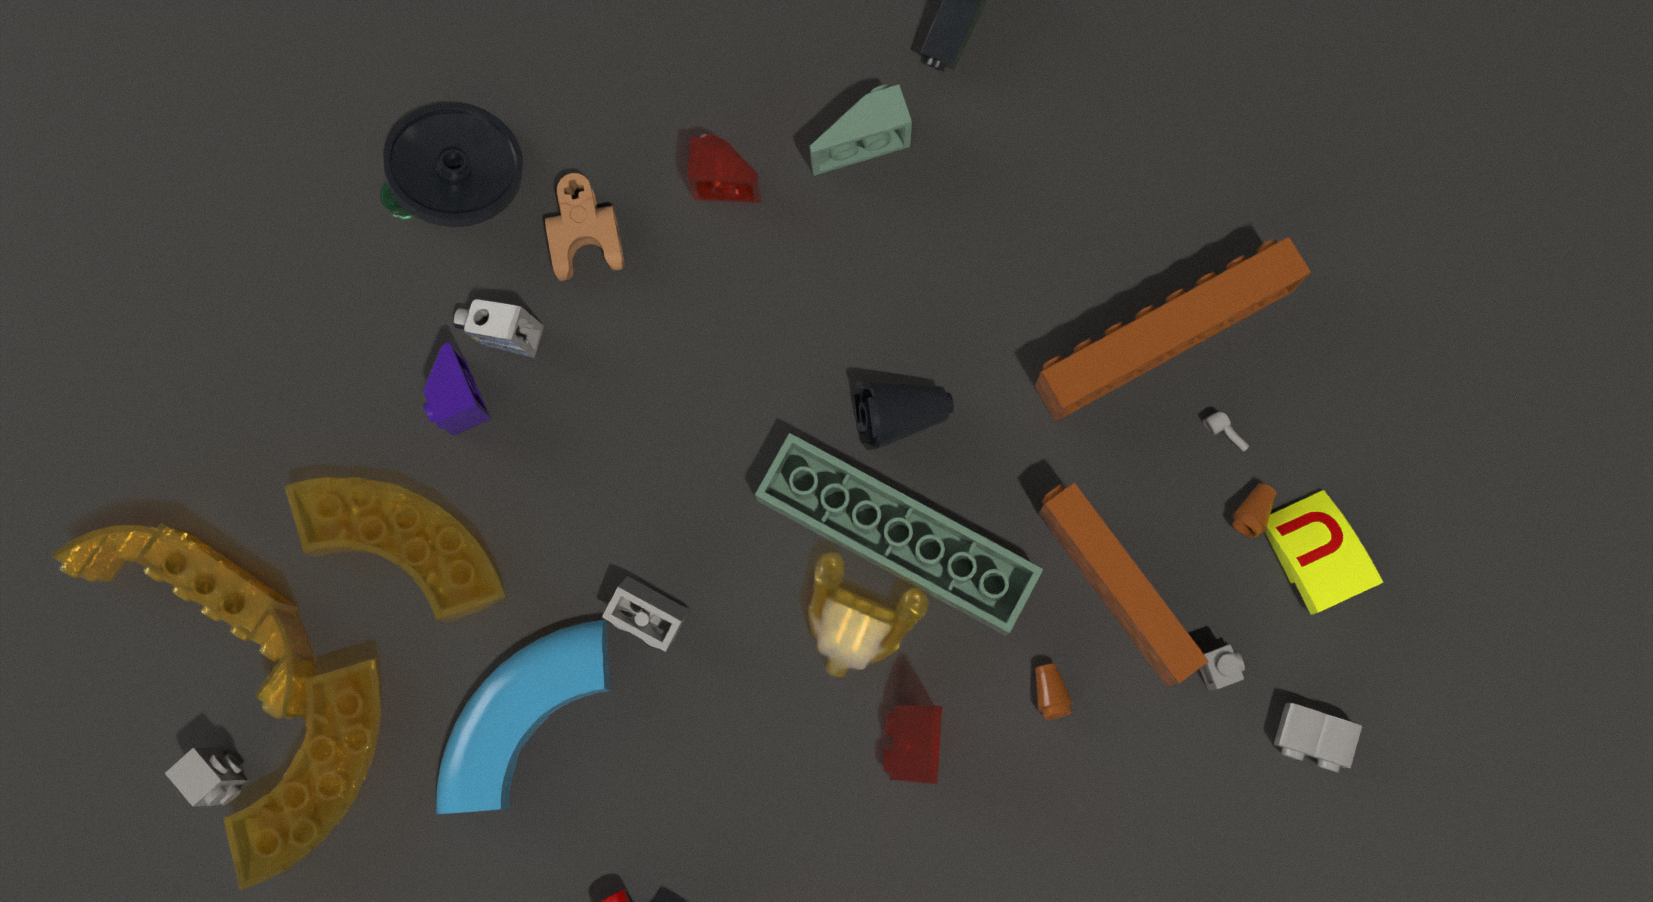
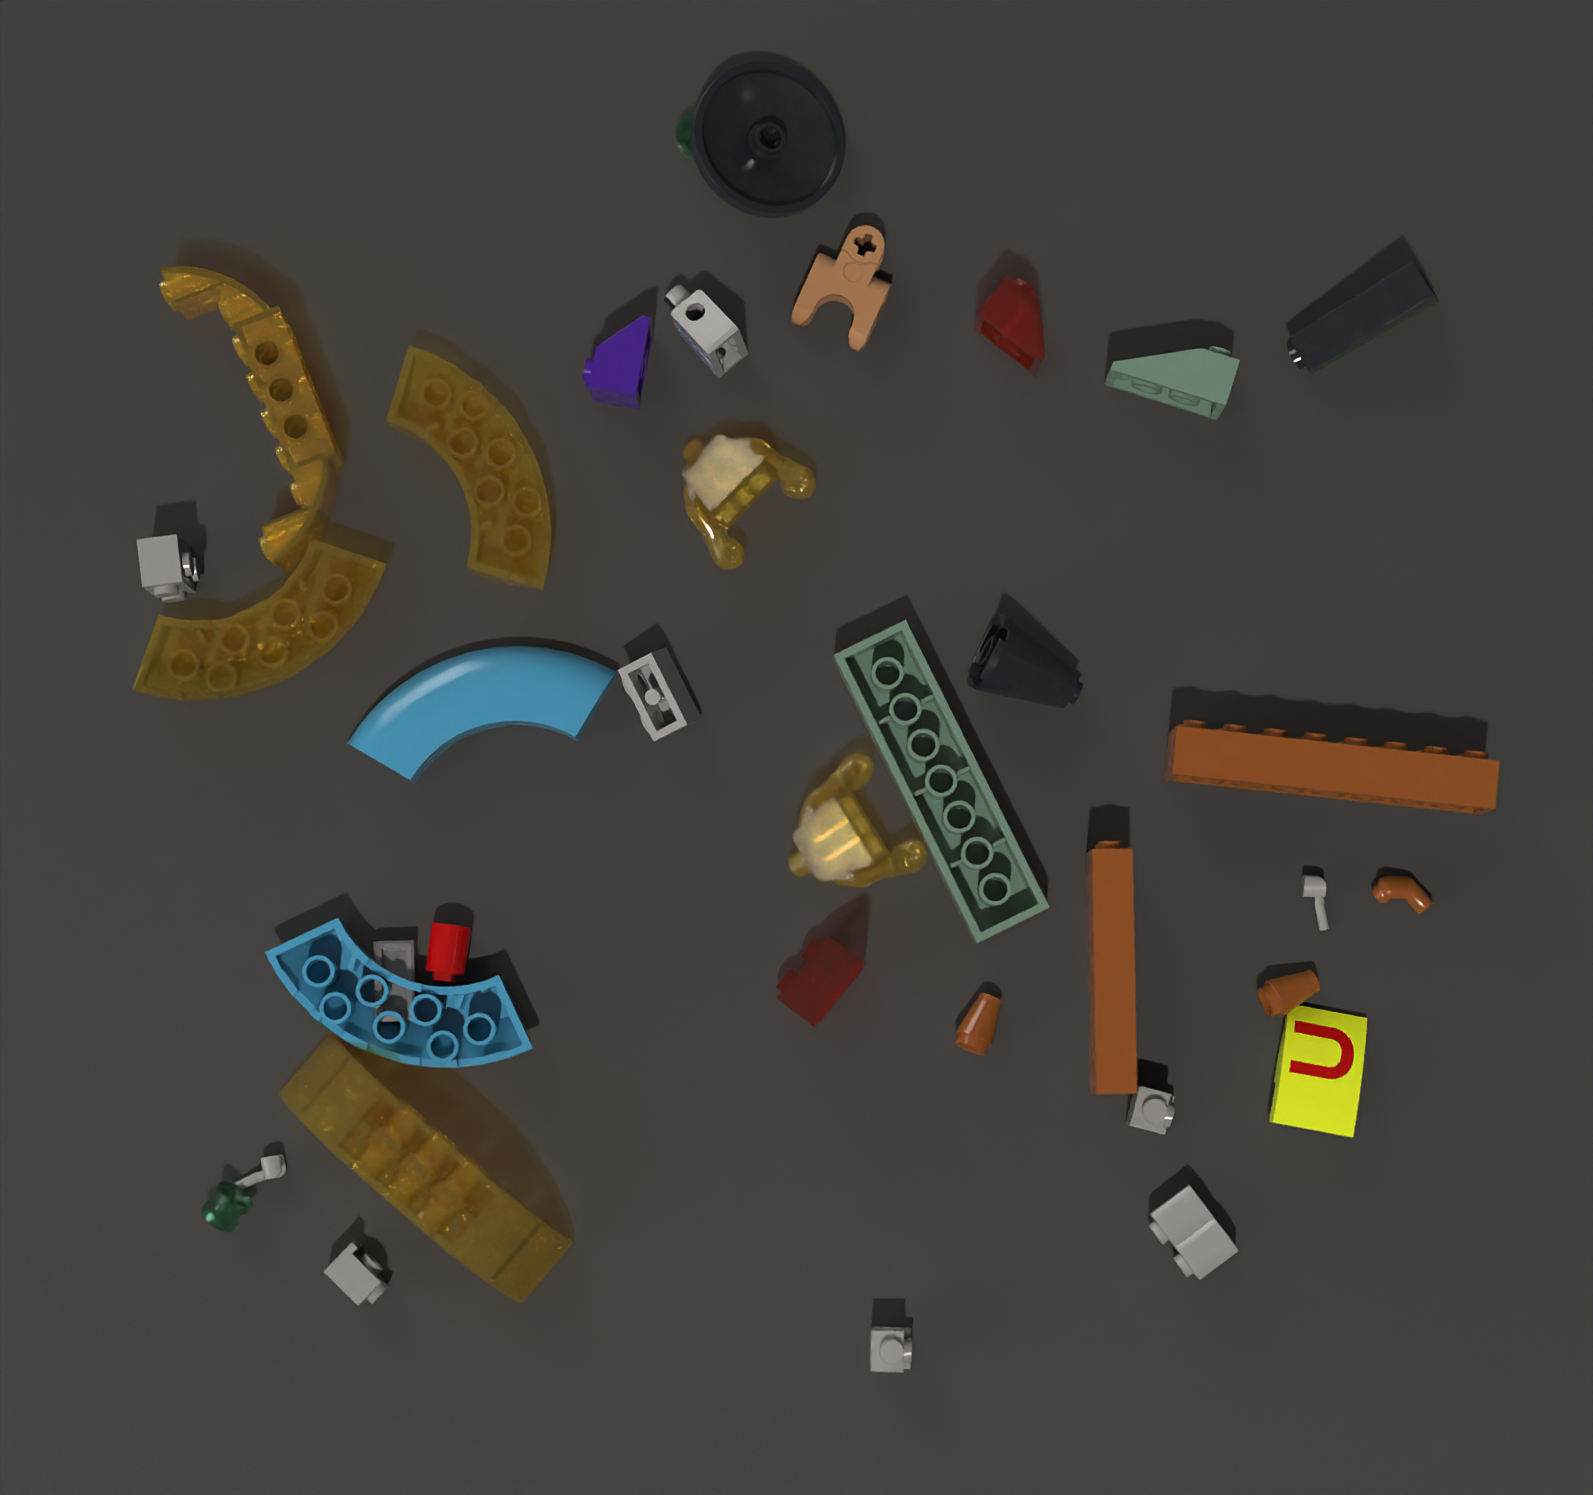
camera: 30 degrees right, 5 degrees up
(590, 422) = (727, 481): none -> clear yellow torso
(1280, 379) = (1401, 888): none -> dark orange arm

